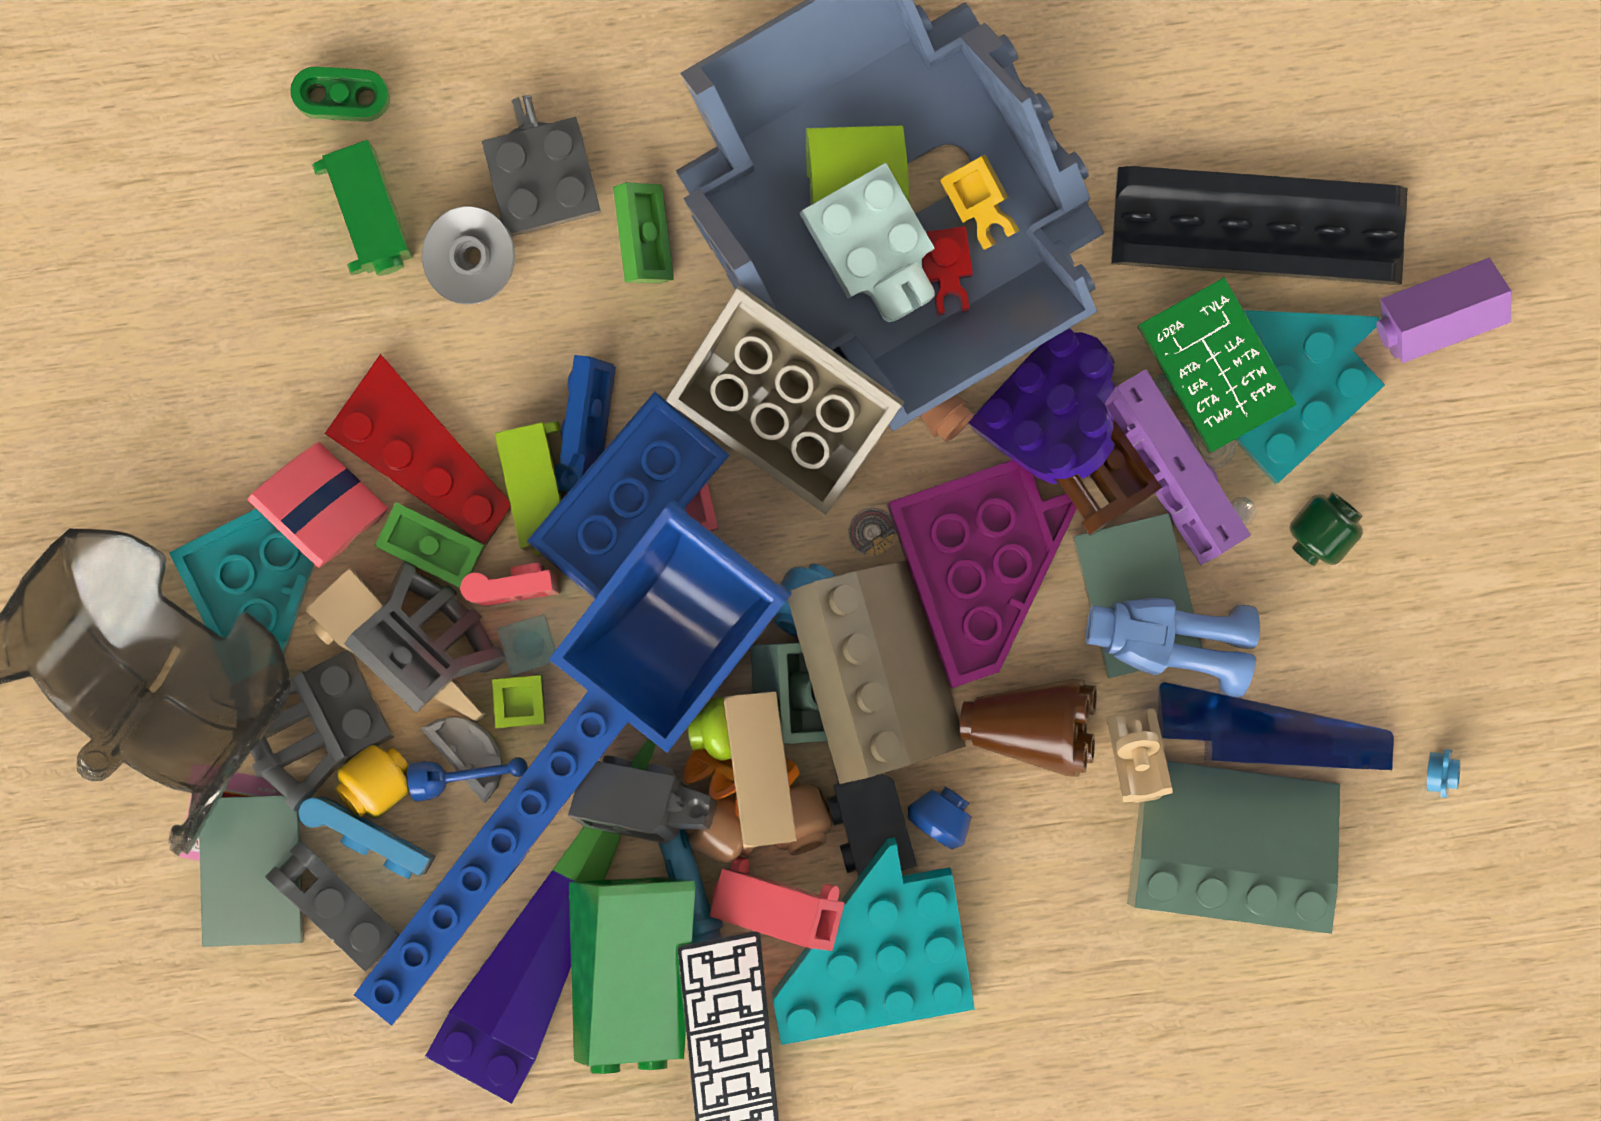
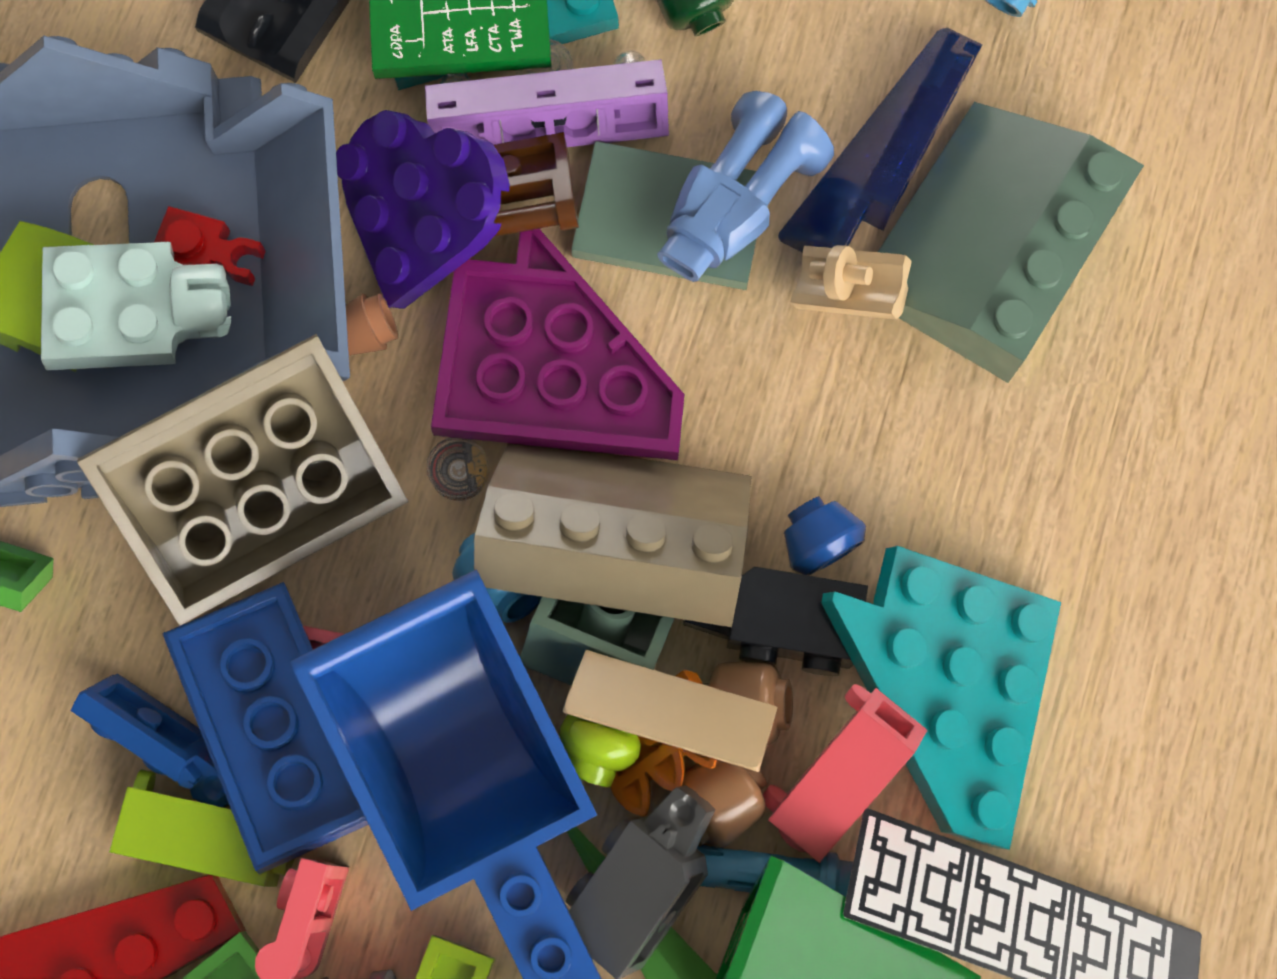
camera: 60 degrees left, 10 degrees down
(527, 644) = (388, 935): clear light blue plate -> none
(976, 194) = (140, 177): yellow plate -> none
(1036, 725) = (764, 381): reddish brown cone -> none

